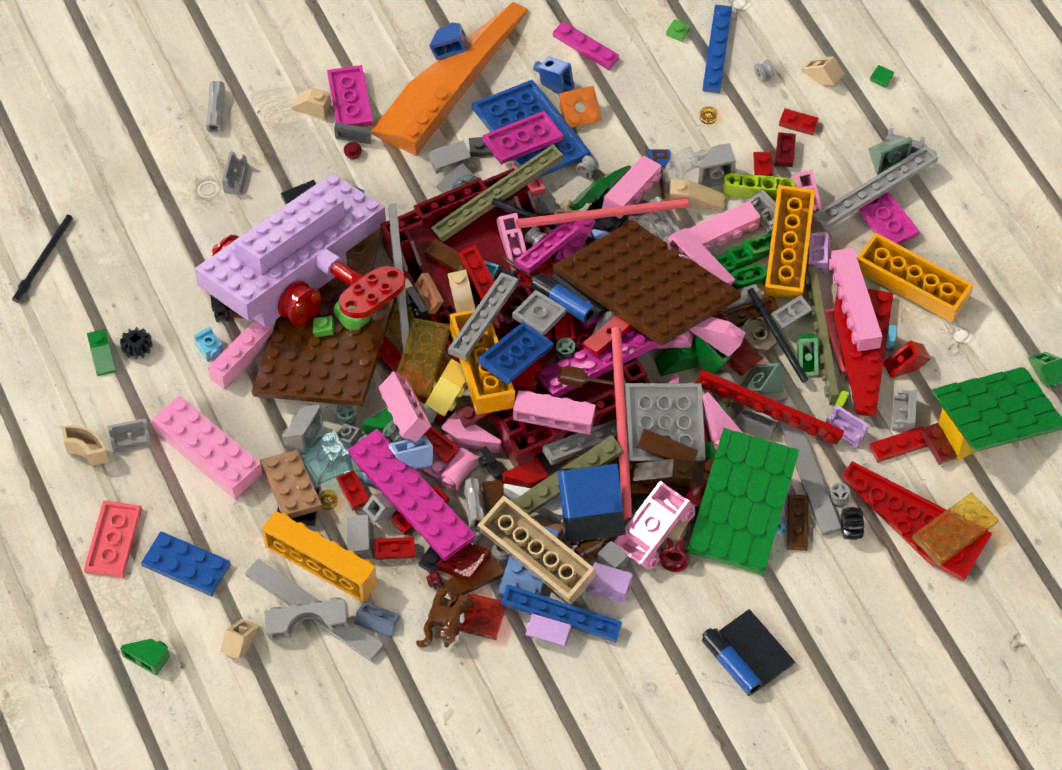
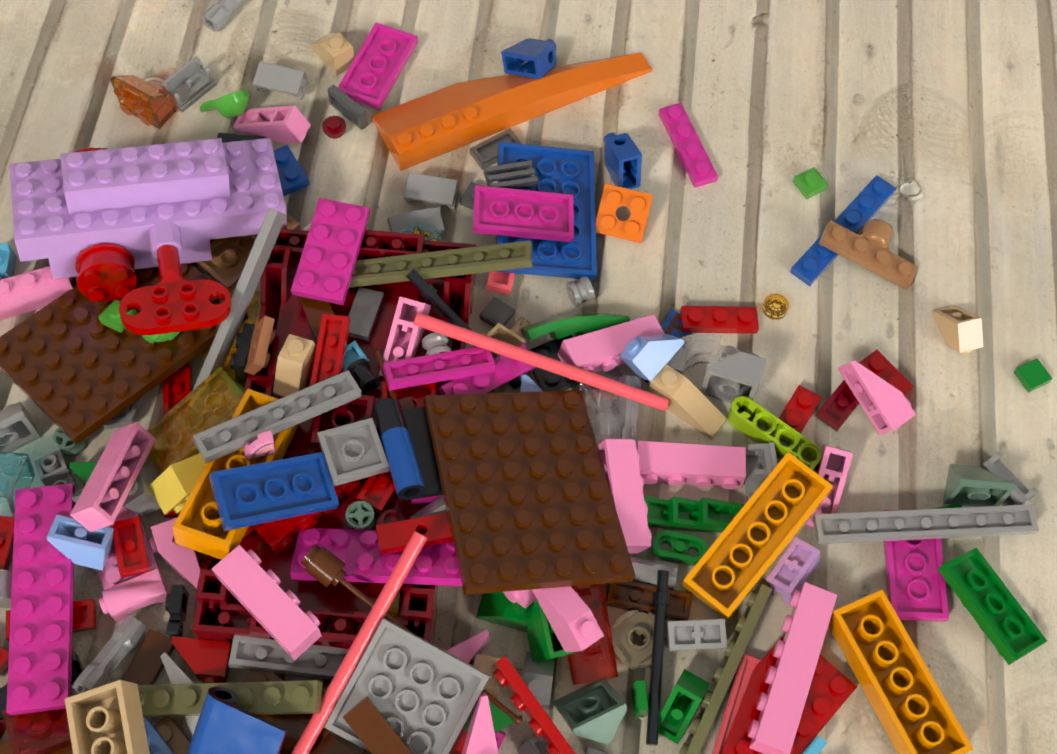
camera: 30 degrees right, 5 degrees up
(216, 198) = (143, 100): none -> clear orange slope
(274, 171) = (228, 105): none -> bright green piece
(294, 138) = (280, 79): none -> light grey hinge
(313, 167) = (279, 124): none -> bright pink slope
(433, 215) = (330, 251): none -> dark pink plate
(464, 114) = (487, 151): none -> flat silver tile
(474, 236) = (365, 313): none -> flat silver tile
(489, 335) = (261, 447): none -> bright pink tile
(494, 117) = (508, 173): none -> flat silver tile
(659, 178) = (650, 354): none -> light blue slope
(680, 140) = (719, 319): none -> red plate
(741, 51) = (870, 250): none -> medium nougat plate
(764, 70) = (883, 287): light grey wheel -> none
(786, 363) = (639, 698): none -> green tile
(803, 133) = (880, 400): none -> bright pink slope
(937, 211) = (992, 605): none -> green plate

